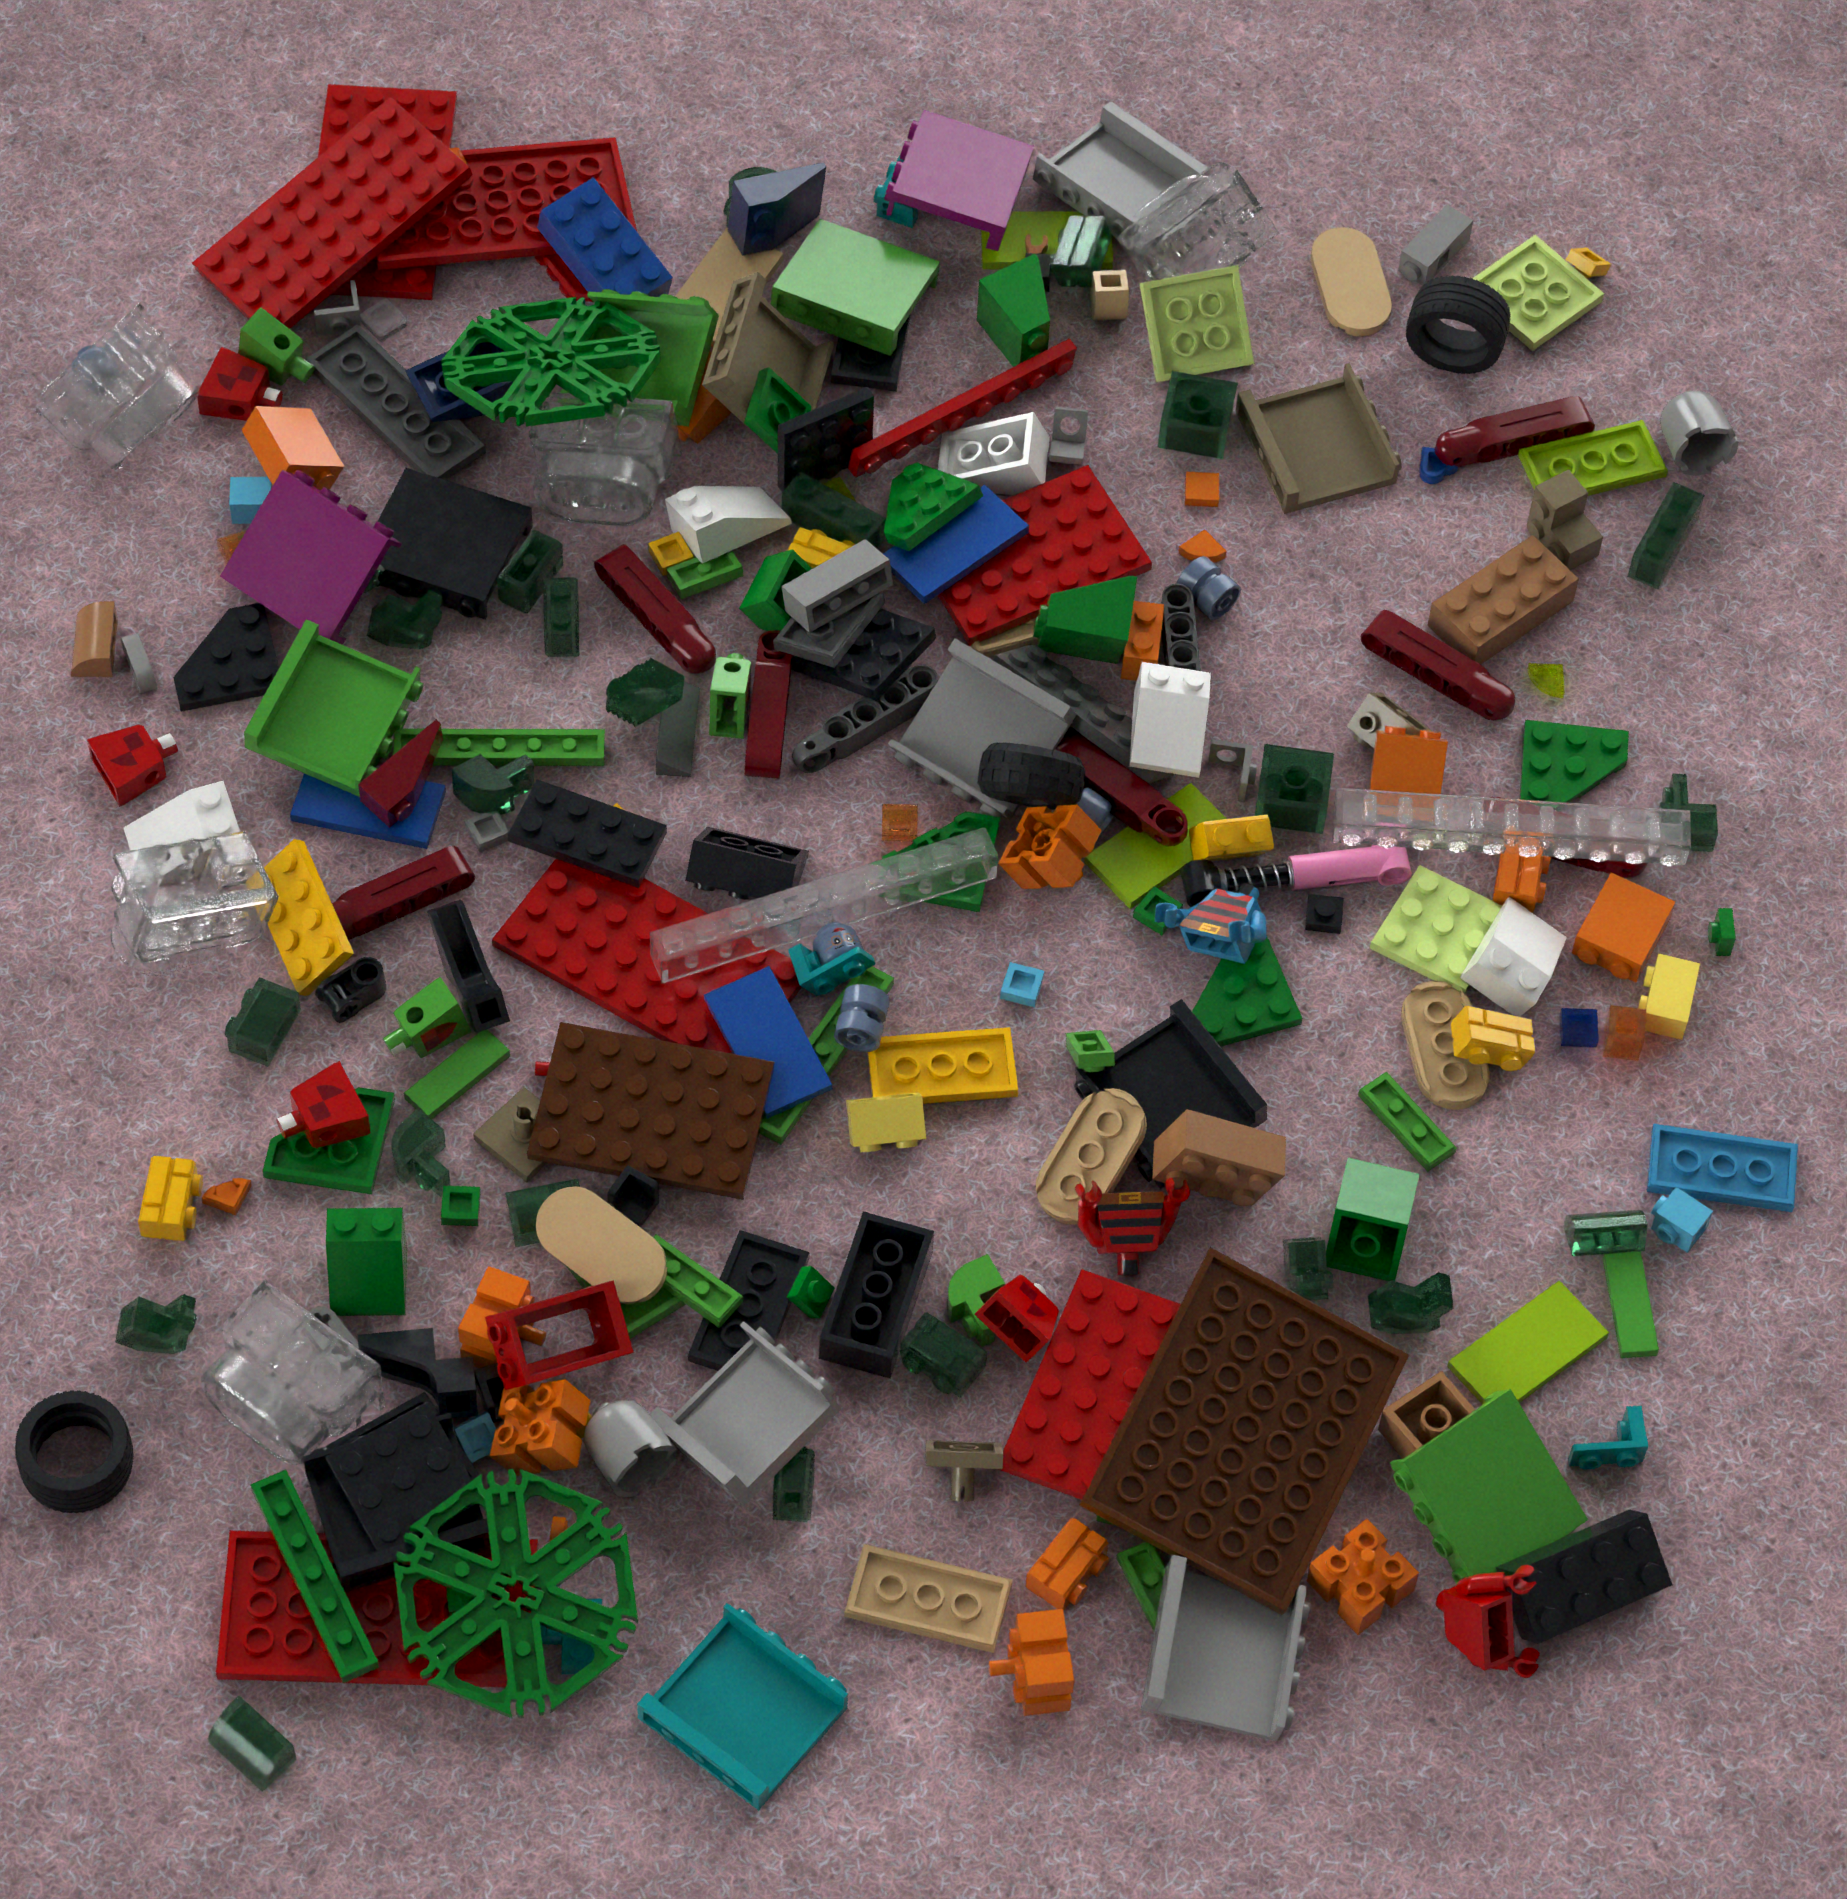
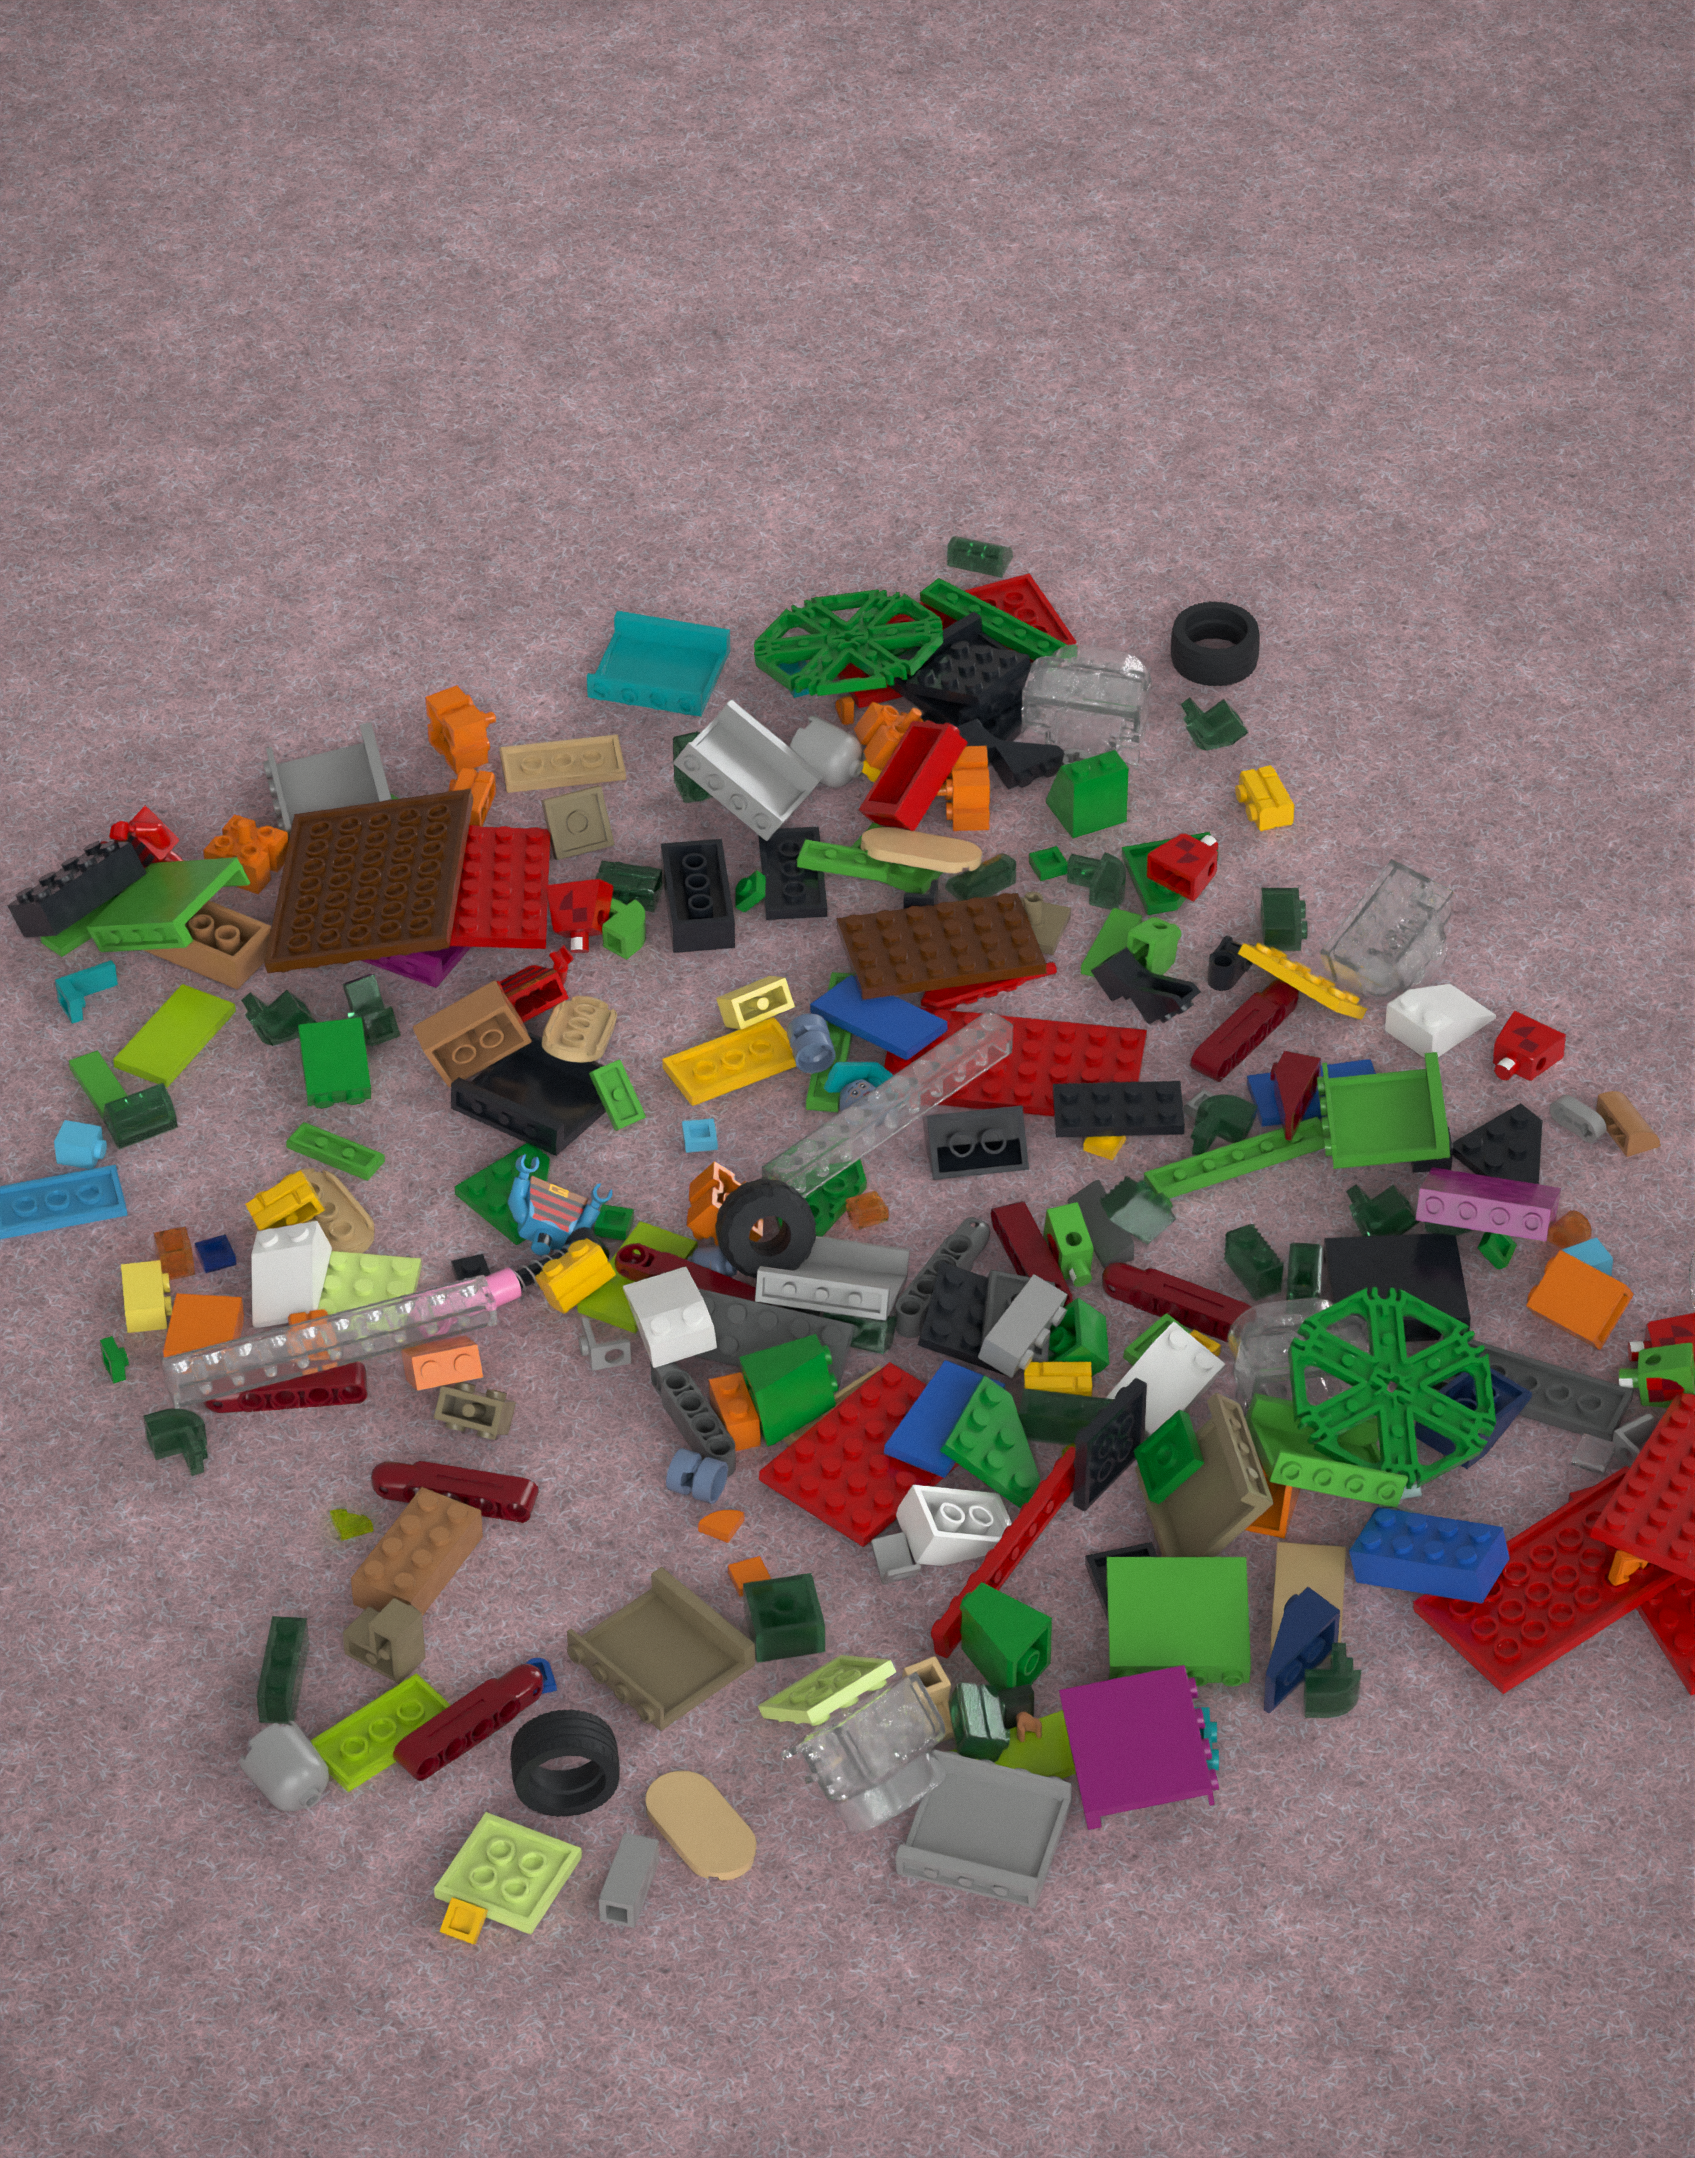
camera: 160 degrees right, 15 degrees down
(228, 1195) = (1226, 822): orange tile -> none
(1294, 788) = (539, 1334): clear green brick -> none
(1568, 759) = (305, 1458): green plate -> none

